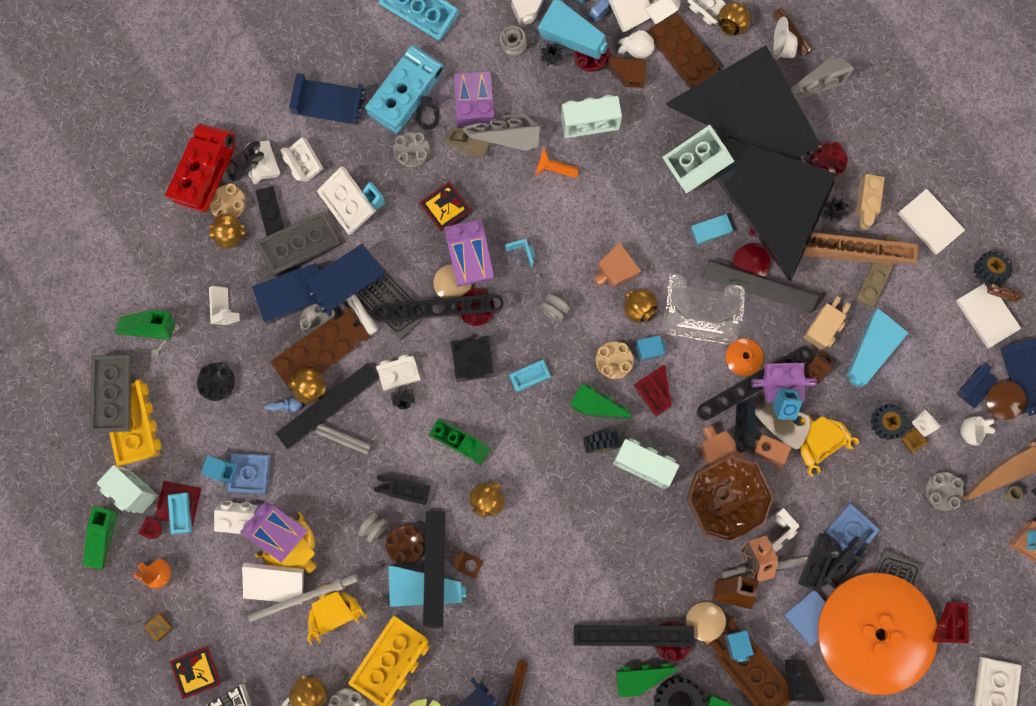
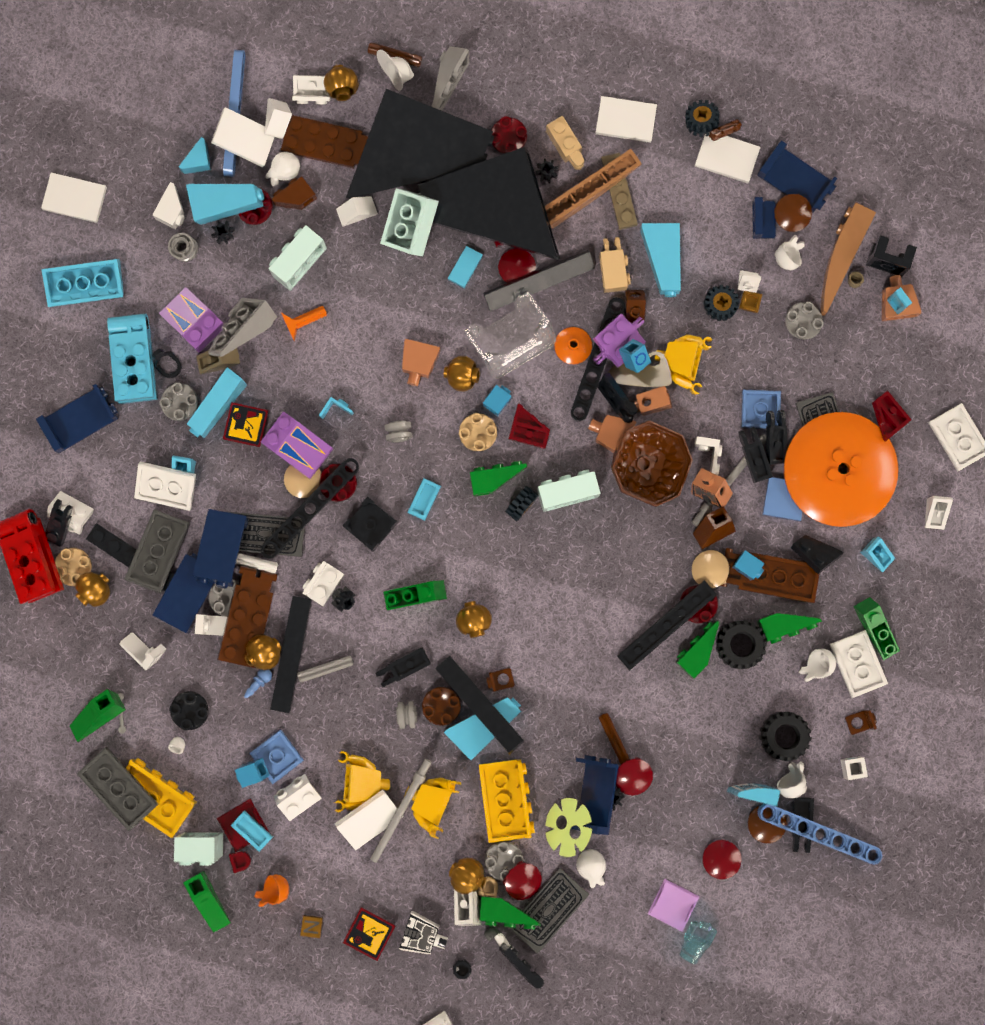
camera: 40 degrees left, 5 degrees up
(183, 399) = (177, 745): none -> white hinge
(273, 531) = (336, 782): medium lavender slope -> none
(287, 330) = (210, 625): none -> white bracket
(302, 160) = (101, 484): white bracket -> none
(437, 172) = (216, 403): none -> medium azure slope
(665, 119) = (356, 209): none -> white slope

